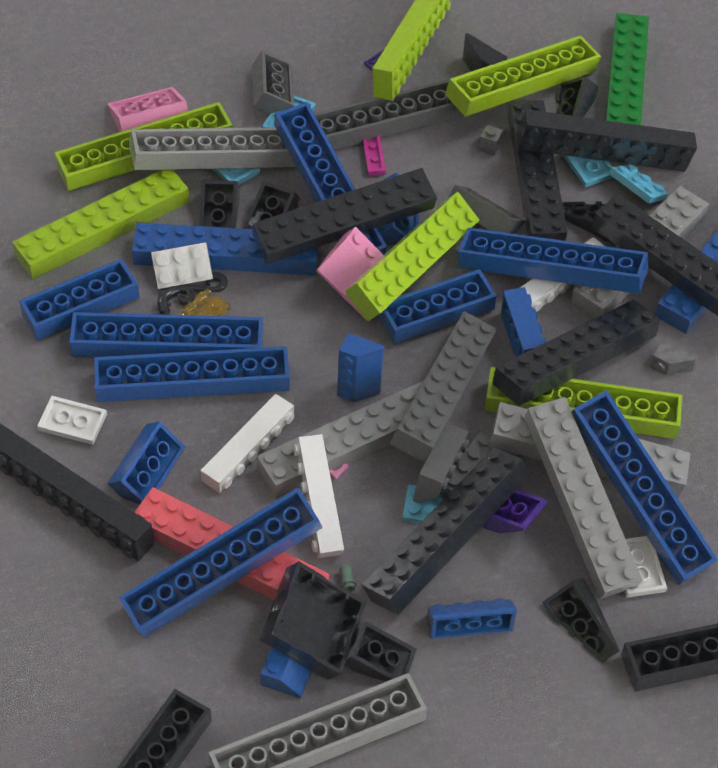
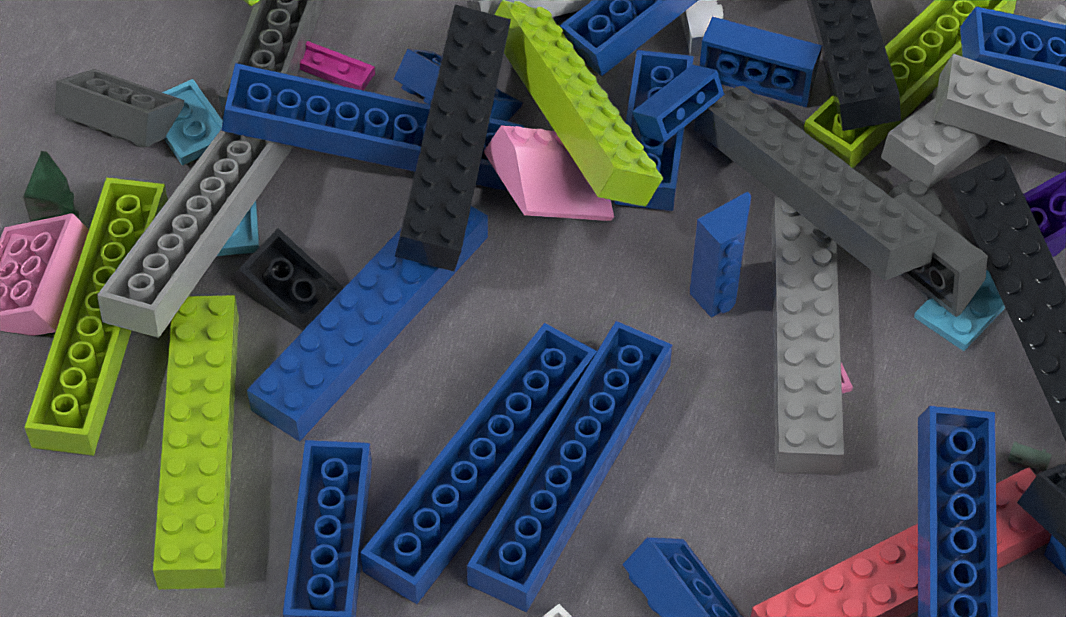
camera: 55 degrees left, 0 degrees up
(182, 265) = (368, 375): white plate -> none
(189, 290) = (406, 394): black plant -> none
(195, 87) = (48, 191): none -> clear green slope
(212, 307) = (464, 386): clear yellow plate -> none
(247, 443) = (736, 458): white brick -> none
(270, 202) = (343, 224): black slope -> none
(319, 494) = (865, 396): white brick -> none
(447, 300) = (678, 103): none -> blue brick

